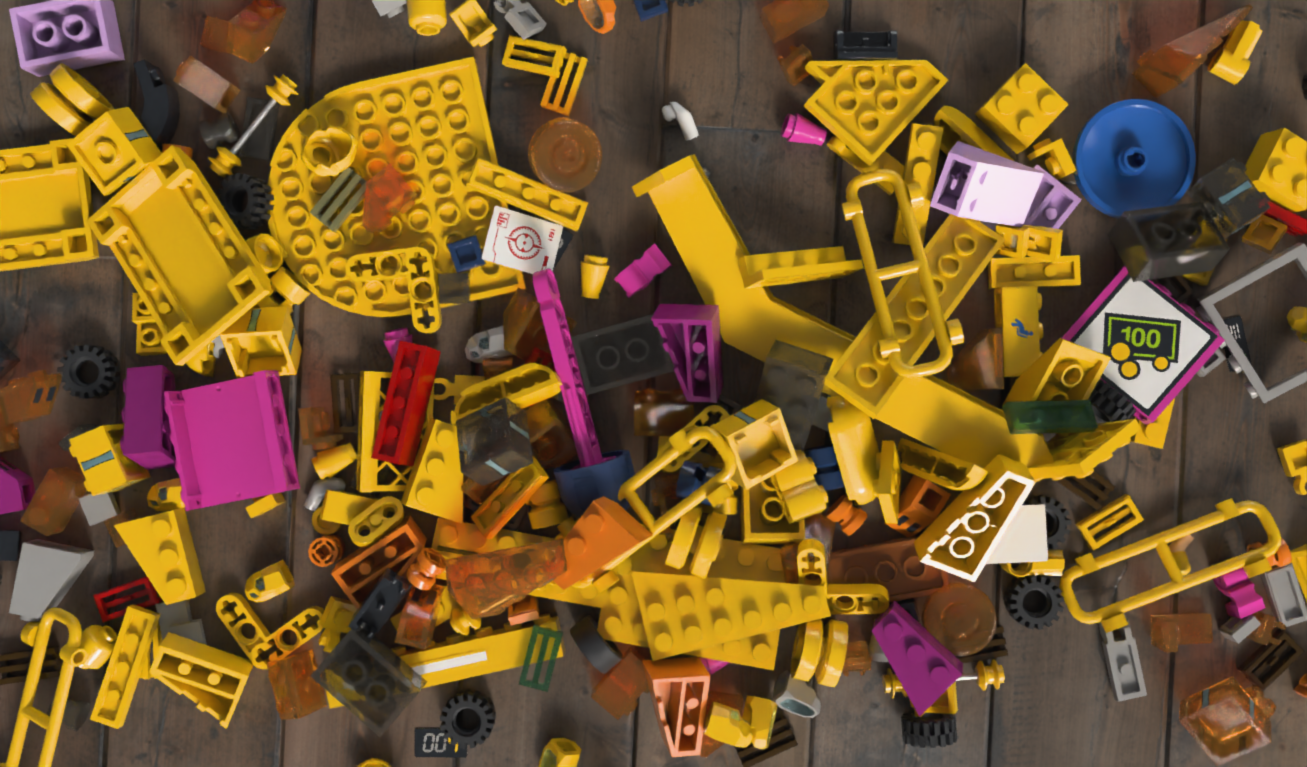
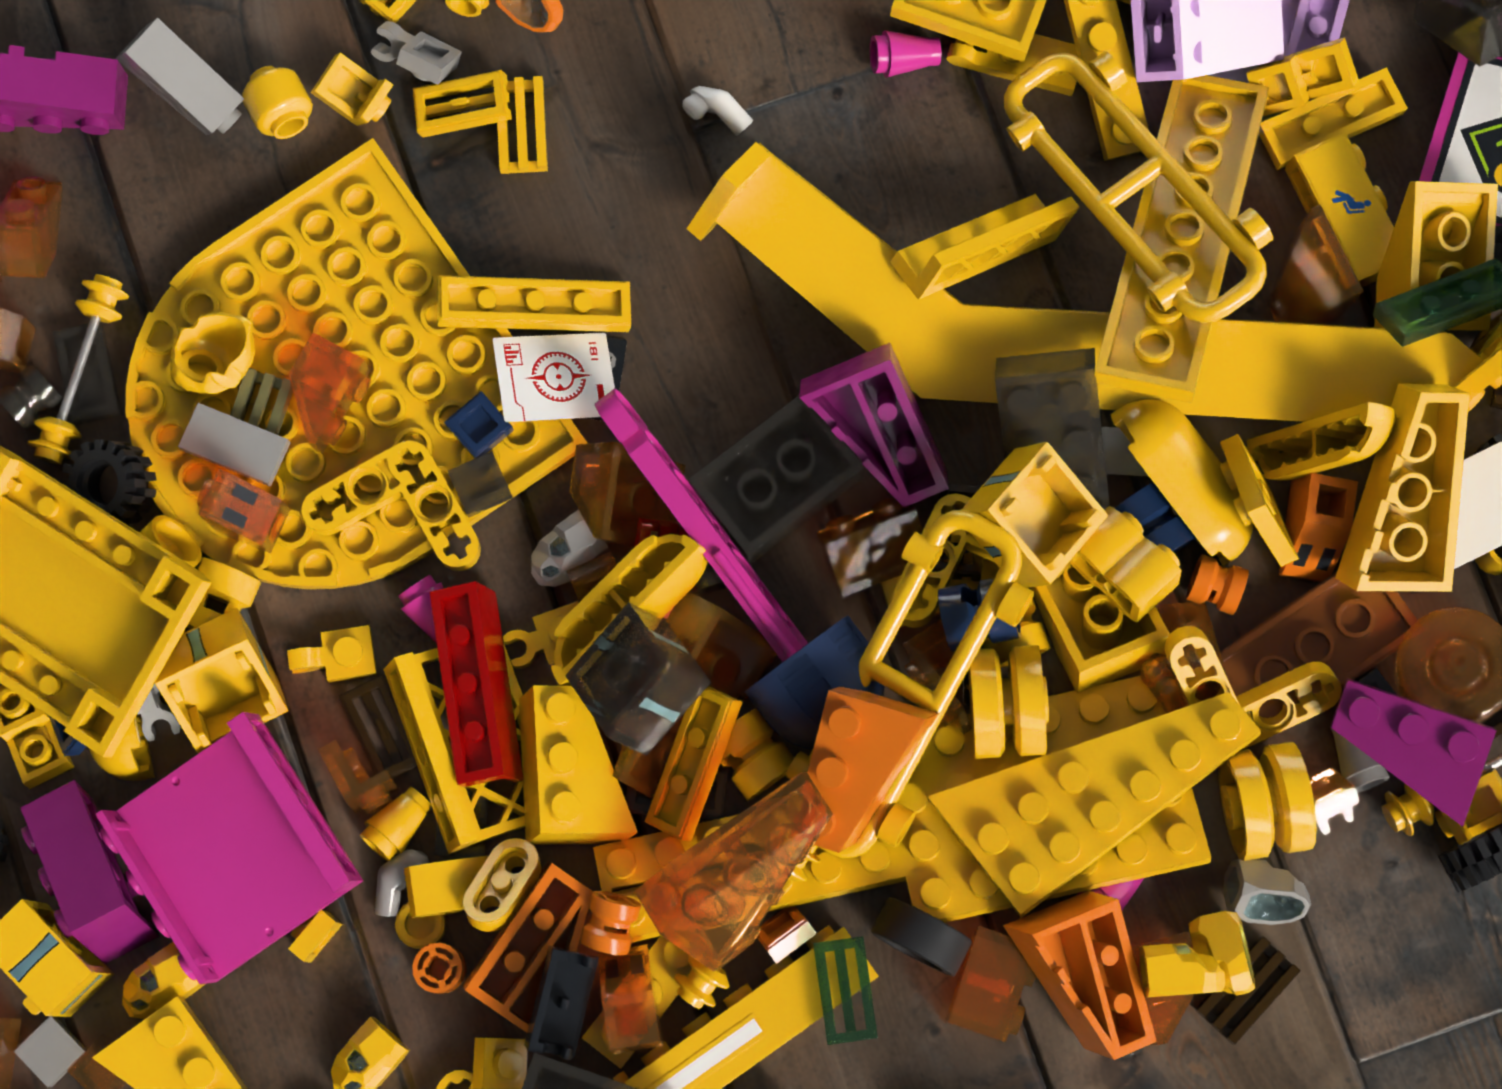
camera: 20 degrees left, 10 degrees down
(309, 251) = (242, 511): none -> clear orange slope
(321, 209) = (234, 444): none -> light grey tile
(342, 351) = (343, 654): none -> yellow plate
(565, 154) = (568, 222): clear orange wheel -> none
(593, 275) = (681, 383): yellow cone -> none
(642, 271) = (753, 346): dark pink leg -> none

